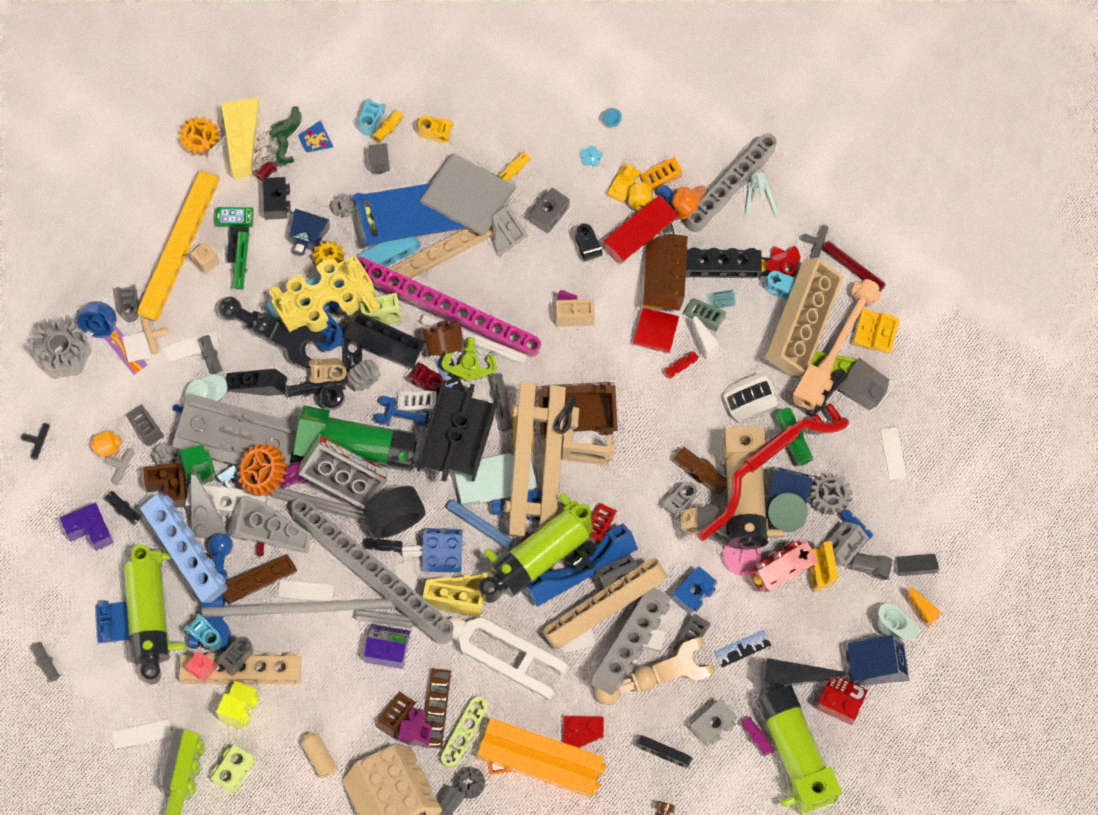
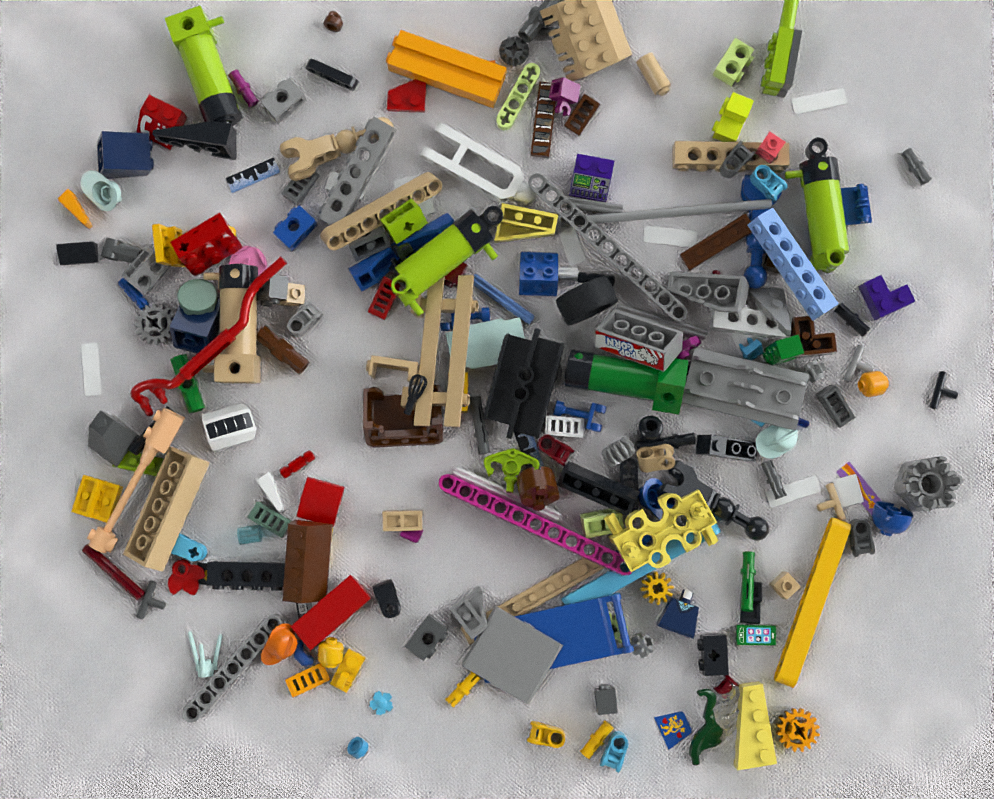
camera: 175 degrees left, 15 degrees up
(257, 465) = (719, 343): orange gear -> none
(581, 591) = (404, 221): none -> lime brick

